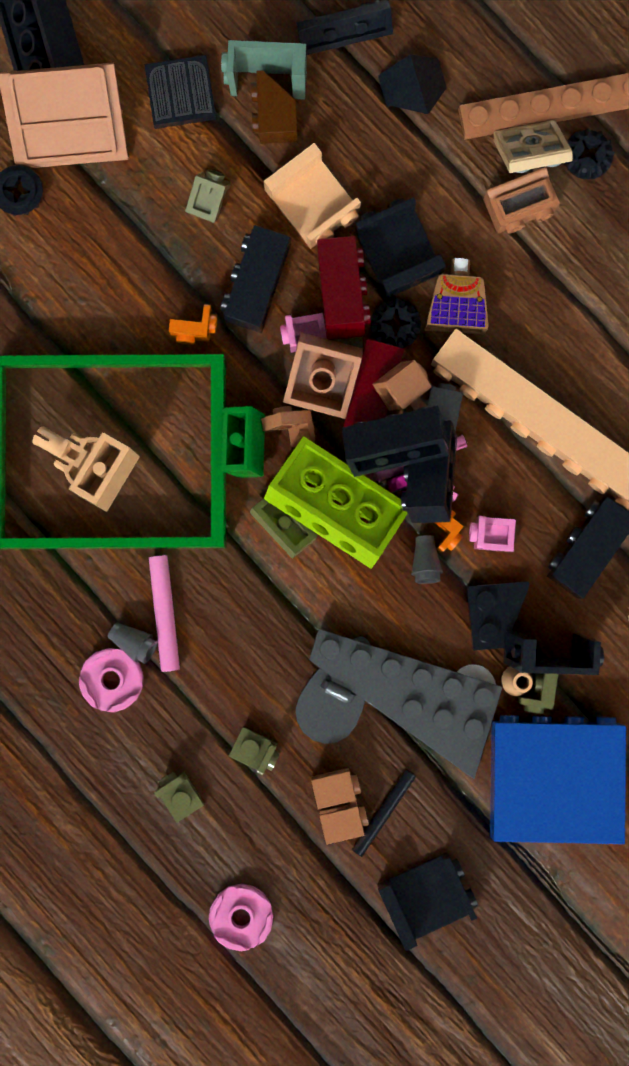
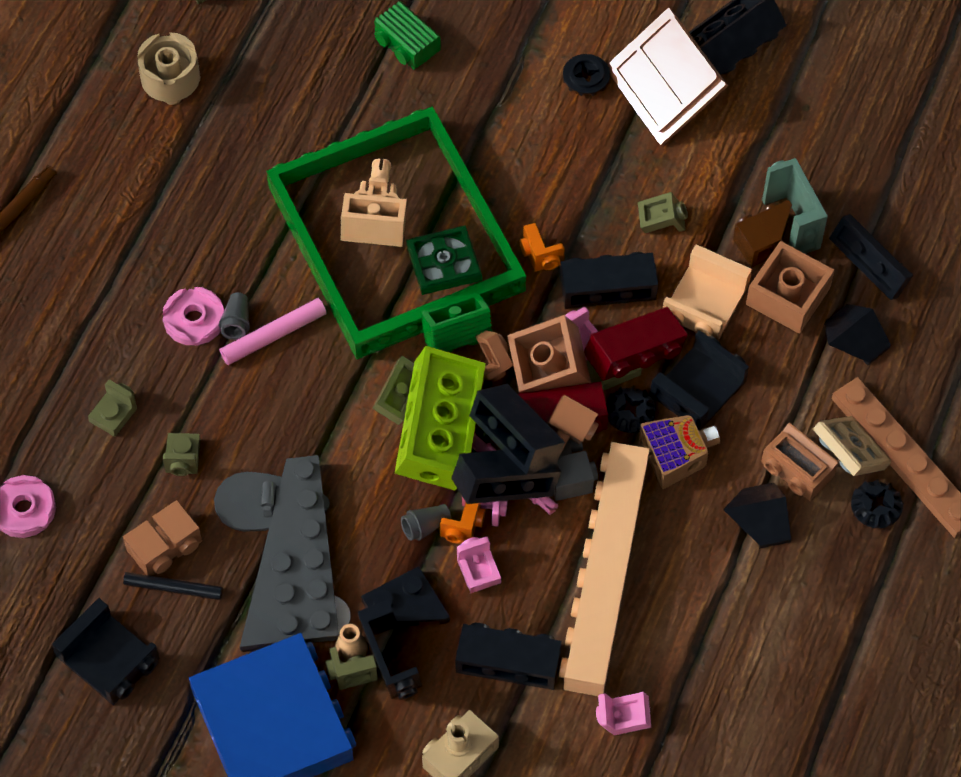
camera: 60 degrees right, 25 degrees down
(175, 424) = (443, 260): none -> dark green piece
(180, 92) = (739, 158): tile -> none
(346, 117) = (789, 287): none -> nougat brick
(553, 258) = (762, 514): none -> black slope

